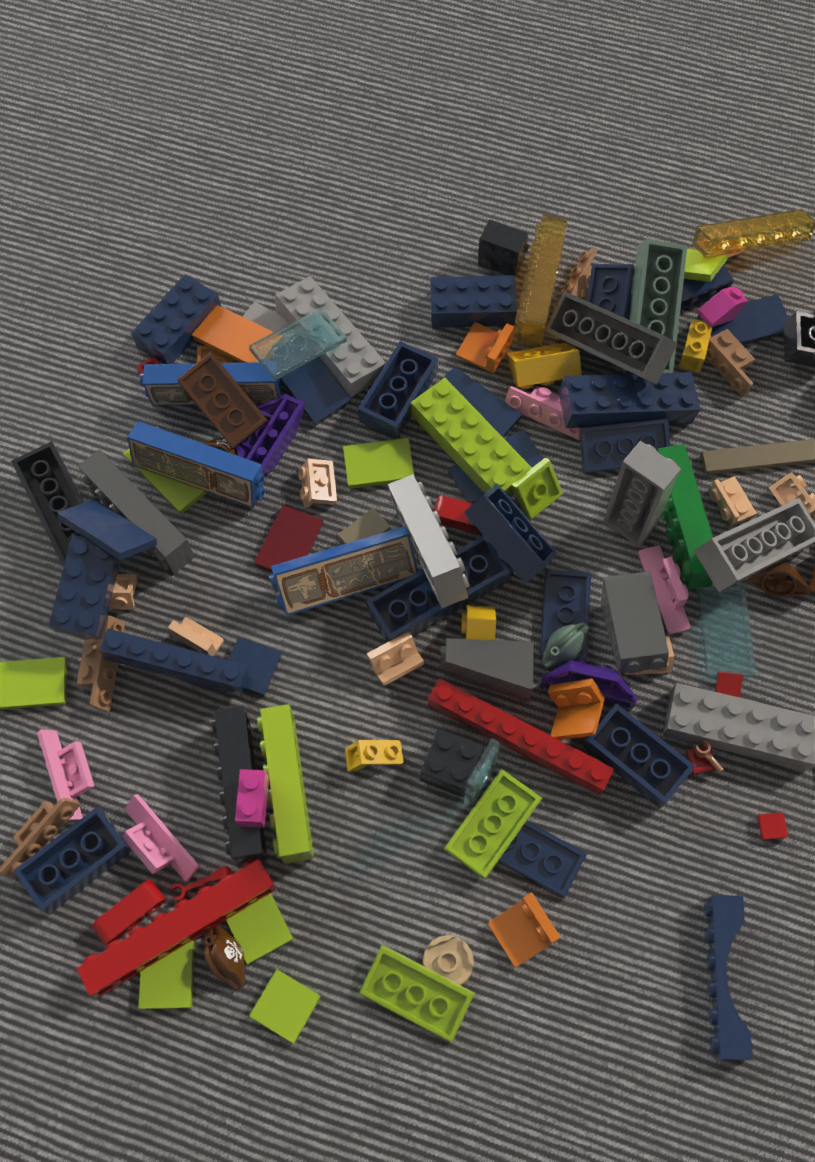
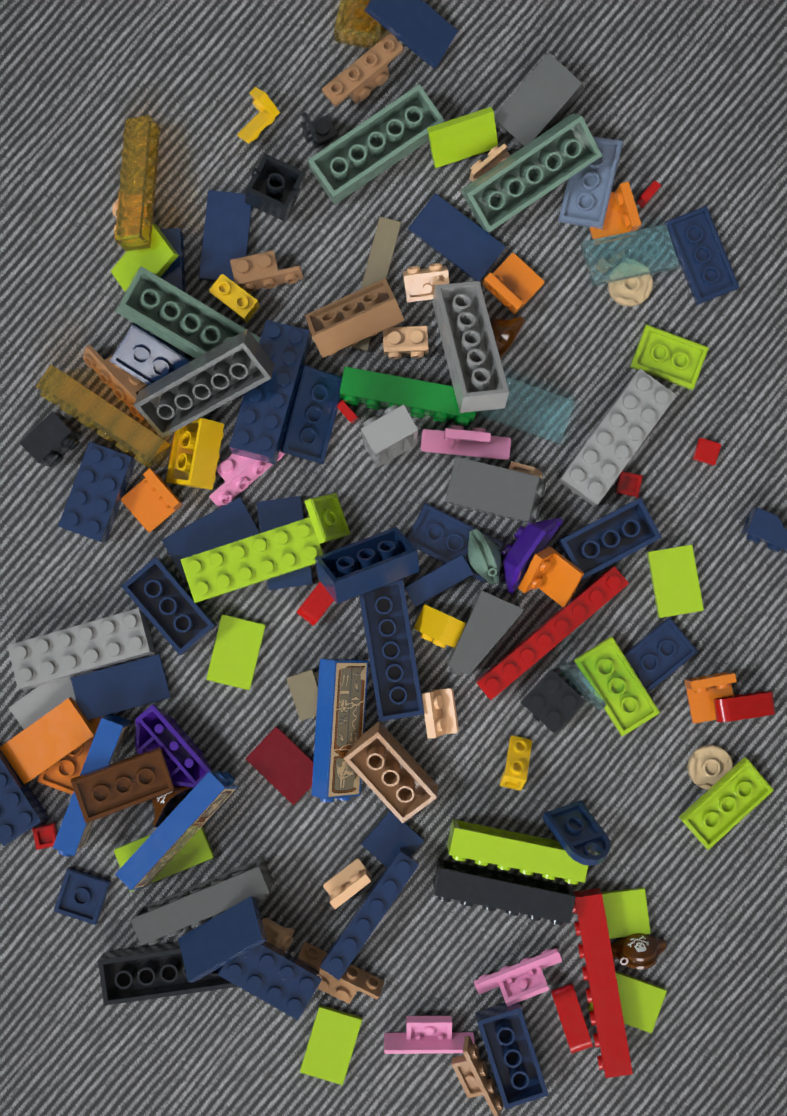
camera: 75 degrees left, 20 degrees up
(105, 417) = (82, 895): none -> dark blue tile
(201, 882) = (568, 930): red piece -> none
(252, 798) = (531, 891): dark pink brick -> none
(285, 1006) = (694, 912): lime tile -> none
(297, 343) = (88, 689): clear light blue tile -> none
(317, 482) = (235, 718): light nougat bracket -> none
(320, 632) = (391, 772): none -> medium nougat slope
(330, 834) = (578, 833): none -> dark blue tile
(429, 541) = (348, 645): brick -> none
(524, 612) = (438, 580): none -> dark blue tile
(529, 968) = (744, 706): none -> red beam
(626, 846) = (675, 581): none -> lime tile
(706, 754) = (630, 478): nougat hand -> none
(722, 306) = (208, 256): dark pink slope -> none
(729, 683) = (574, 429): red tile -> none
(730, 446) = (354, 318): none -> medium nougat slope

